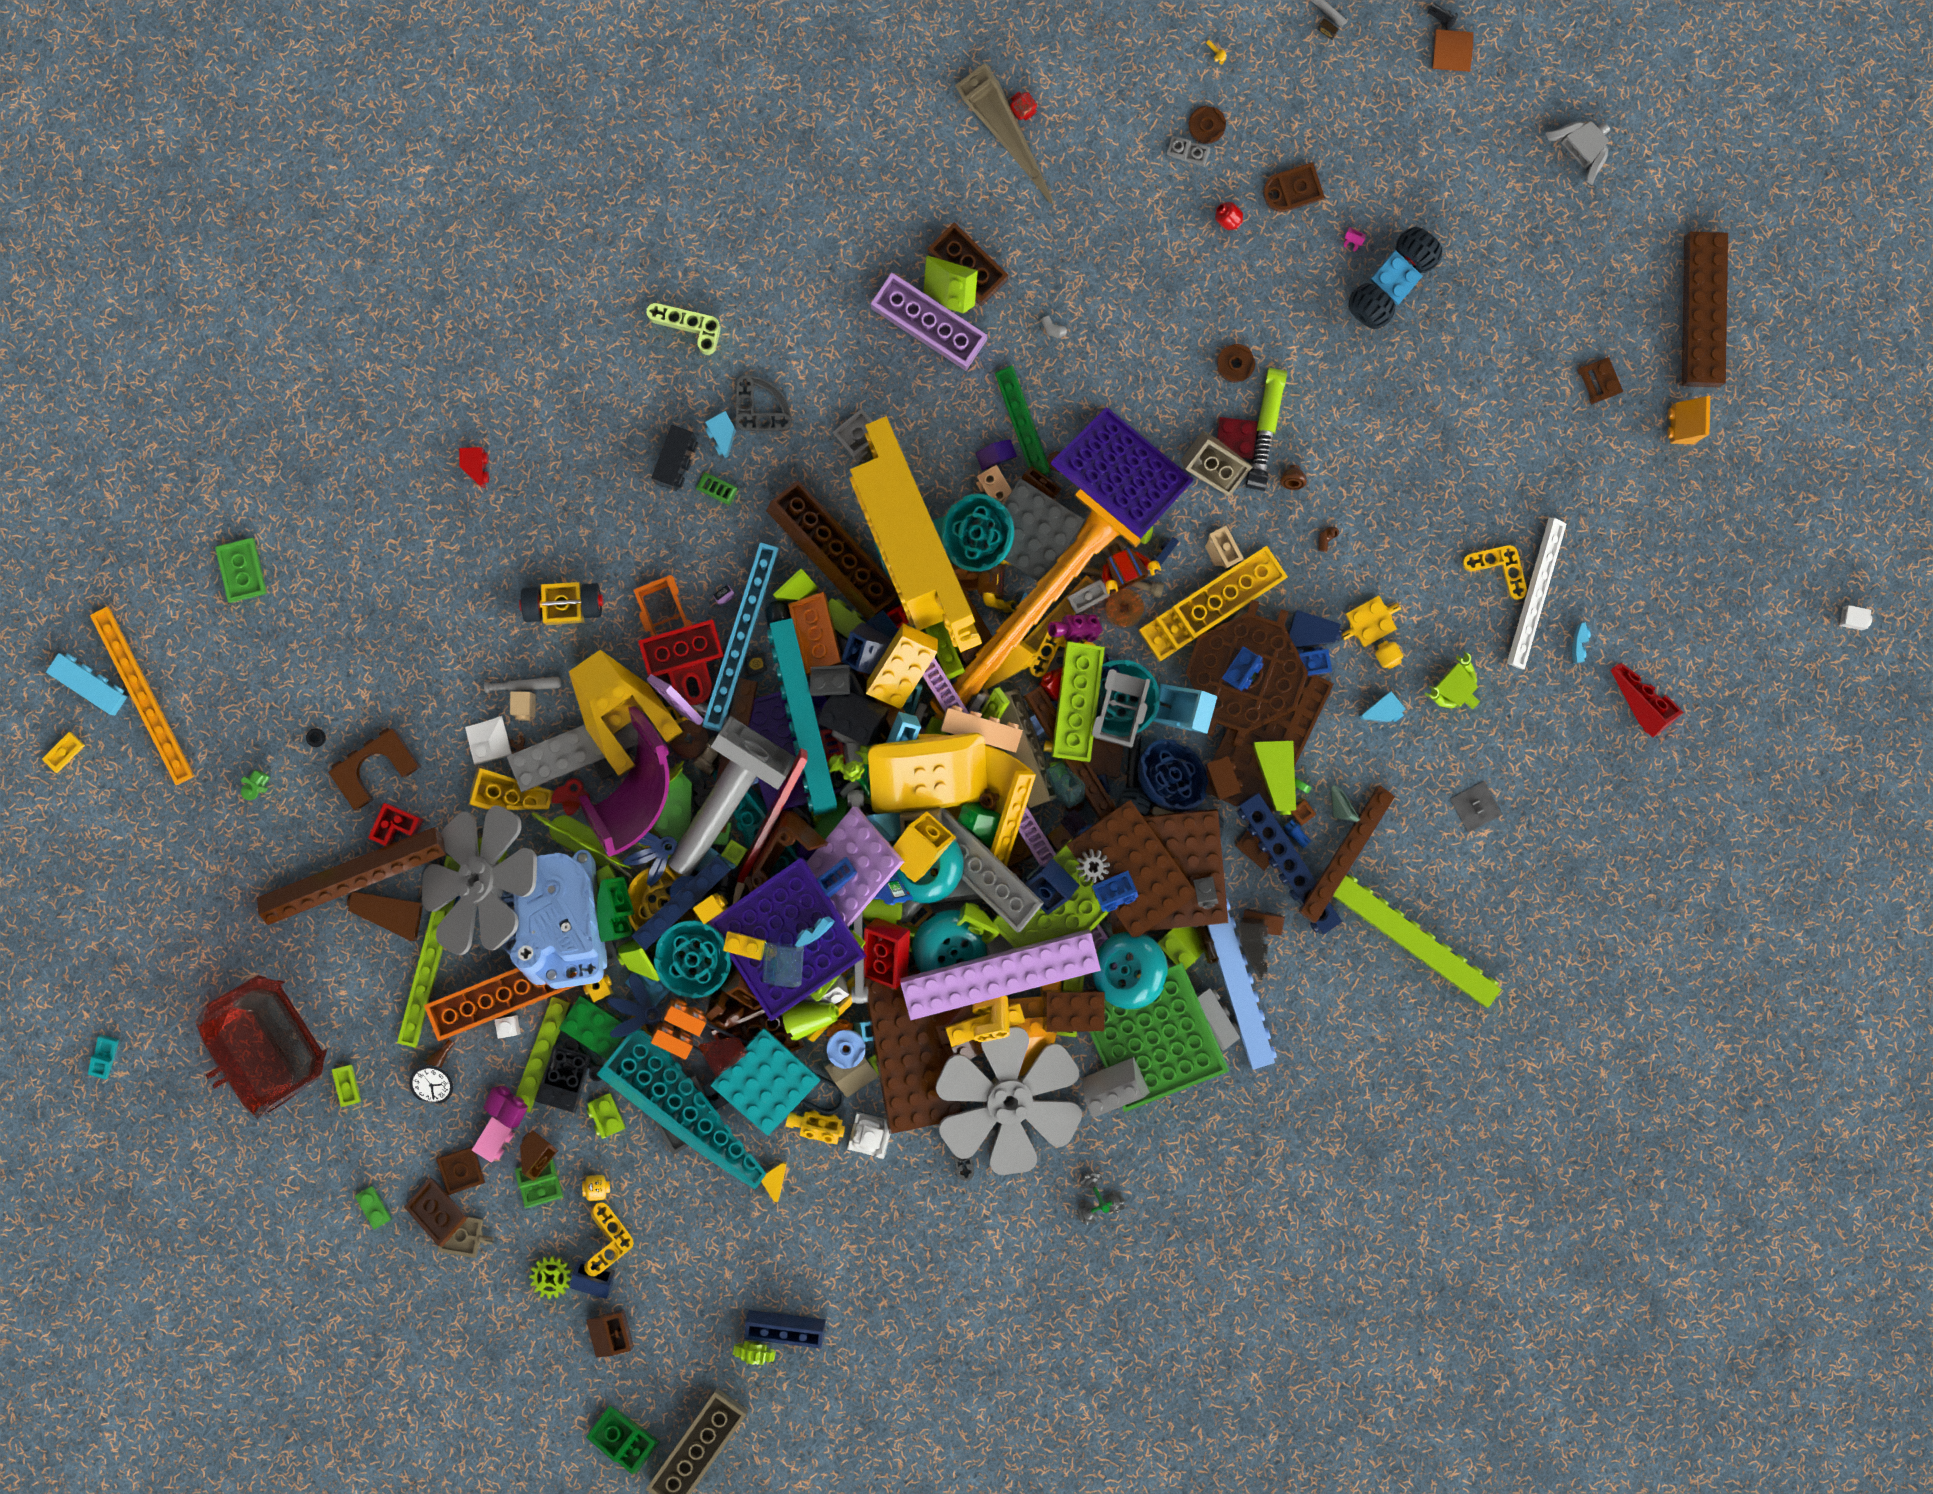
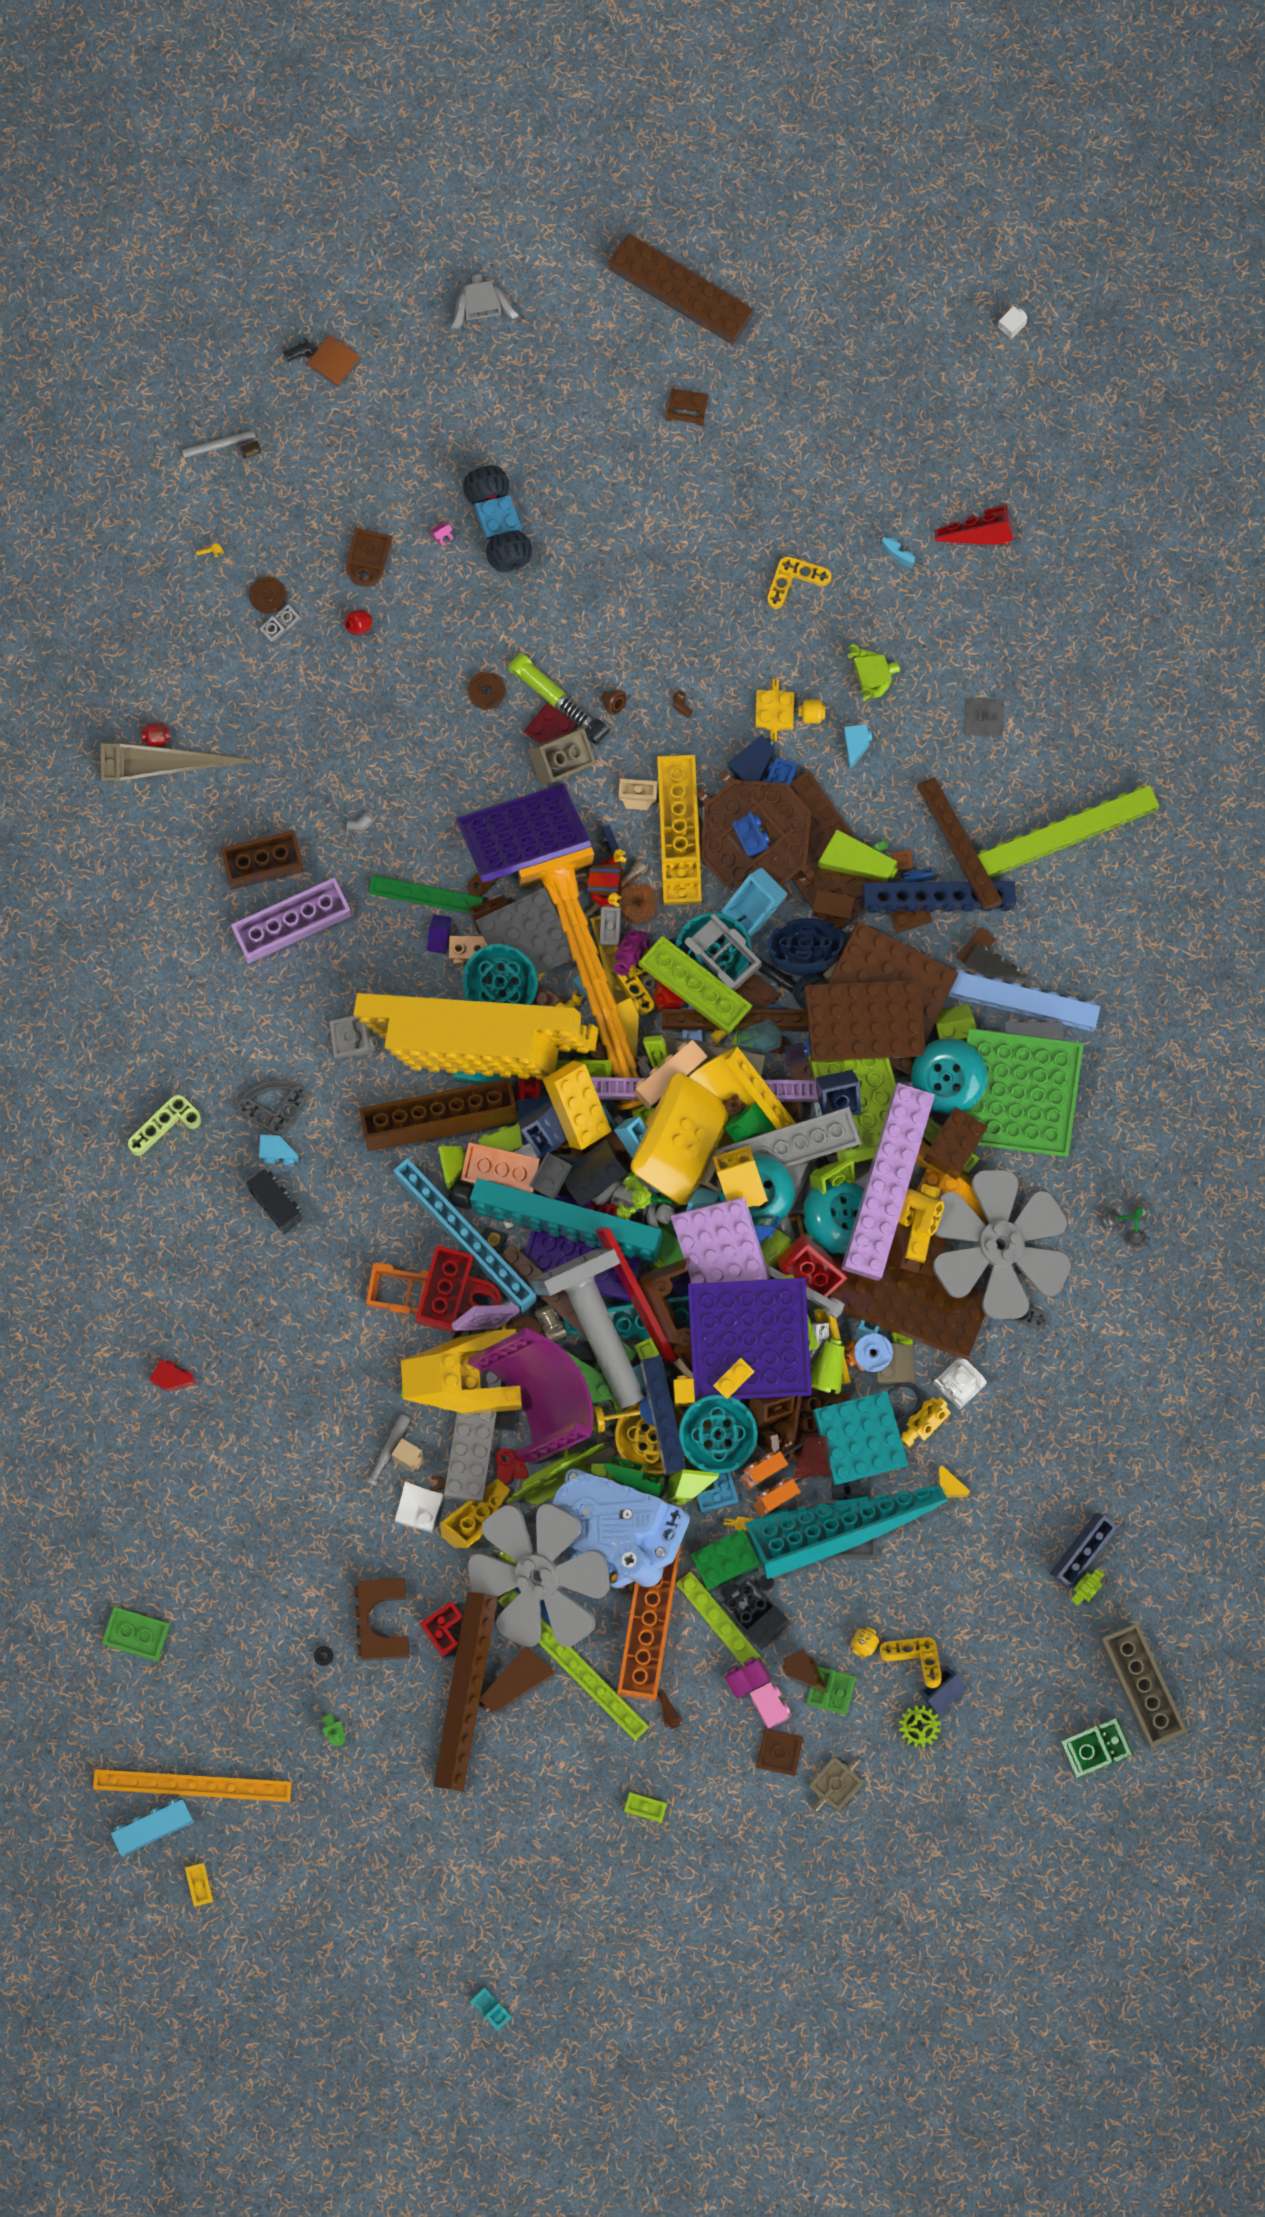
camera: 55 degrees left, 10 degrees down
(260, 1045) = (568, 1854): clear red windscreen -> none
(373, 1207) = (766, 1847): bright green plate -> none
(431, 1084) = (689, 1732): sticker -> none
(436, 1212) = (803, 1791): reddish brown plate -> none
(507, 1026) = (679, 1635): white brick -> none
(561, 603) = (340, 1370): brick -> none
(603, 991) = (698, 1537): yellow brick -> none
(605, 1115) = (807, 1597): lime bracket -> none
(610, 1334) = (999, 1704): reddish brown slope -> none
(639, 1011) = (727, 1518): dark blue plant -> none
(656, 850) = (607, 1408): dark blue plant -> none
(724, 595) = (417, 1232): slope -> none
(733, 490) = (331, 1185): bright green slope -> none
(783, 964) = (769, 1353): clear light blue slope -> none
(809, 935) = (759, 1314): medium azure slope -> none
(830, 891) = (729, 1263): blue slope -> none
(950, 284) = (271, 882): lime slope -> none
(1099, 866) = (838, 1052): light grey gear -> none
(1114, 1087) = (1041, 1150): light grey slope -> none
(1115, 891) = (876, 1042): blue bracket -> none
(1206, 892) = (921, 972): dark grey bracket -> none
(1207, 944) = (966, 1003): dark brown pin -> none
(1341, 806) = (917, 825): sand green slope -> none
(1536, 593) = (834, 562): white plate -> none
(1689, 420) = (766, 355): light orange slope -> none

